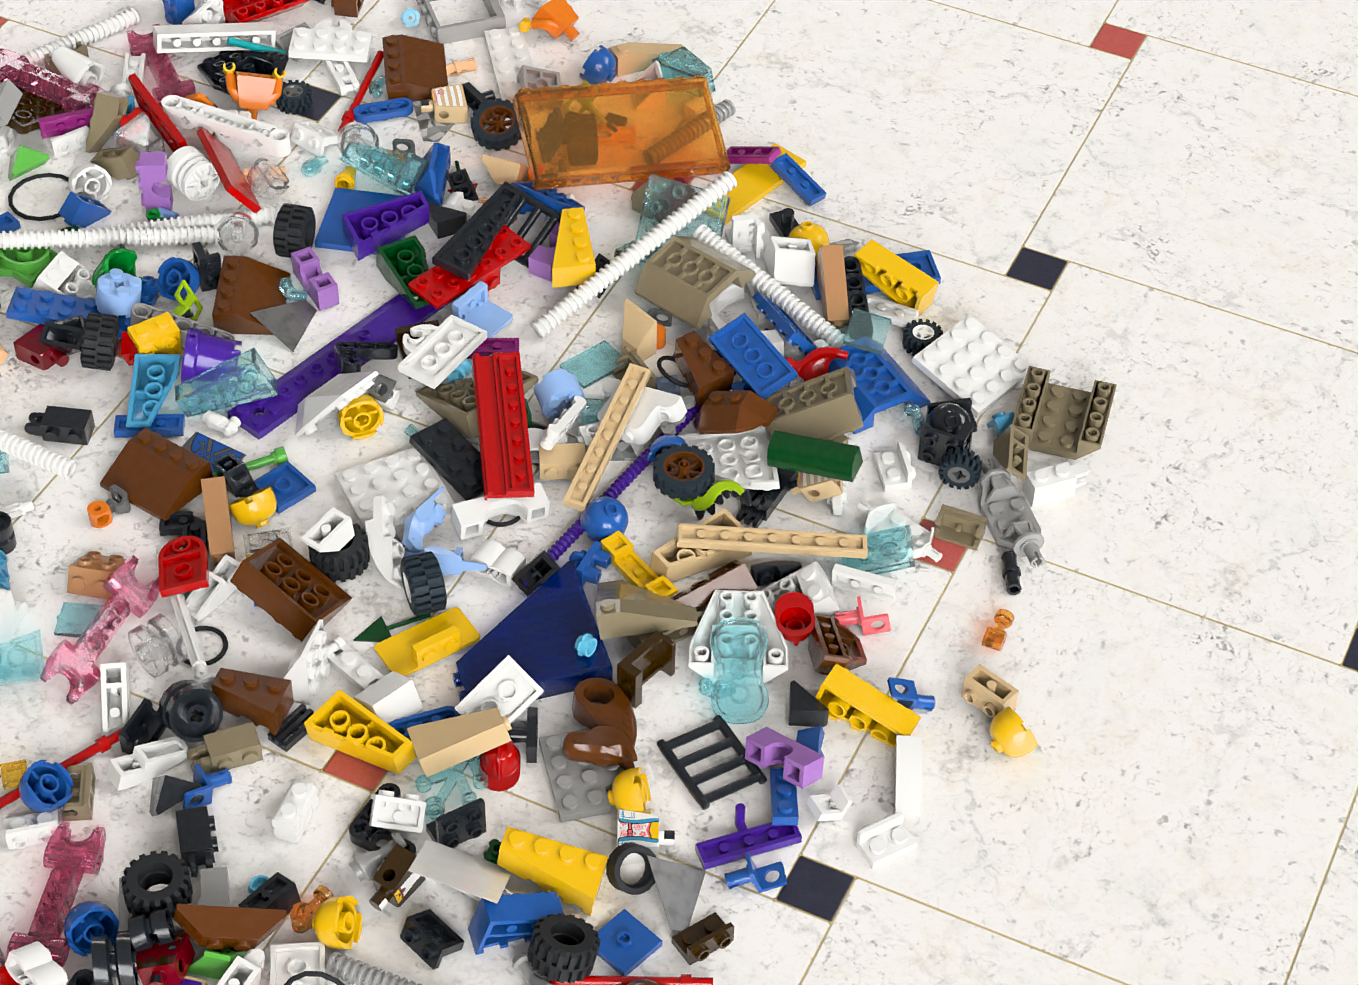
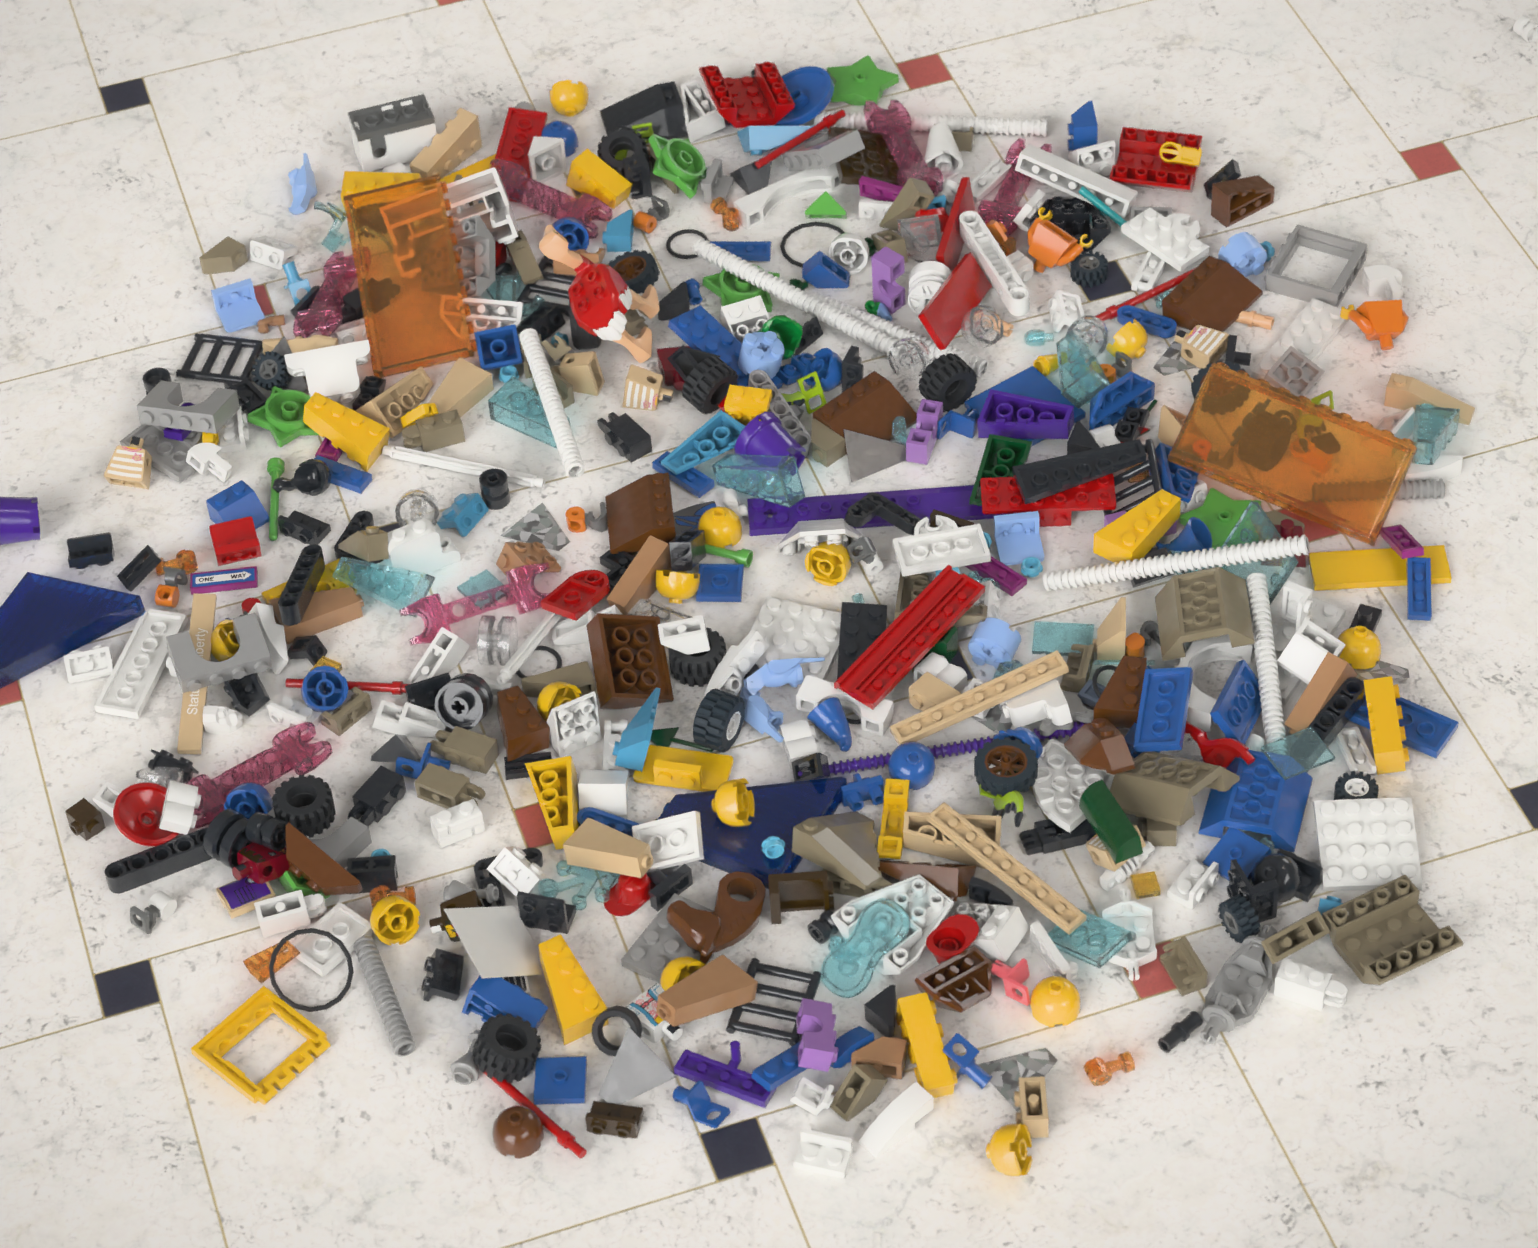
camera: 50 degrees right, 0 degrees up
(39, 380) = (644, 389): none -> tan torso
(69, 543) = (538, 527): none -> sticker
(202, 75) = (1029, 210): none -> white bracket
(231, 439) = (720, 527): none -> yellow cylinder
(244, 330) = (826, 444): none -> dark tan slope
(252, 642) = (576, 674): none -> dark tan slope
(252, 790) = (446, 787): none -> dark tan hinge
(267, 657) = (555, 695): none -> yellow cylinder
(333, 257) = (959, 423): none -> blue bracket
(374, 634) = (636, 737): none -> dark azure wedge
(393, 127) = (1129, 340): none -> yellow cylinder
(405, 22) = (1244, 254): none -> light blue brick
(509, 530) = (833, 722): none -> blue hat
(511, 327) = (1031, 567): none -> medium azure plate
(520, 633) = (734, 803): none -> yellow cylinder
(561, 426) = (959, 668): white plate -> none
(599, 67) = (1365, 385): blue cylinder -> none
(611, 237) = (1192, 538): none -> blue hat
(612, 213) = (1218, 514): none -> bright green plate
(660, 353) = (1116, 662): none -> clear light blue piece
(669, 785) = (706, 992): none -> medium nougat slope
(683, 683) = (823, 927): none -> black wheel
(844, 740) = (885, 1055): none -> medium nougat slope
(857, 776) = (858, 1091): none -> dark tan slope
(863, 491) = (1145, 885): none -> clear yellow tile
(901, 426) = (1236, 846): none -> blue plate
(907, 612) = (1055, 1001): none -> yellow cylinder
(942, 680) = (1008, 1070): none -> sticker

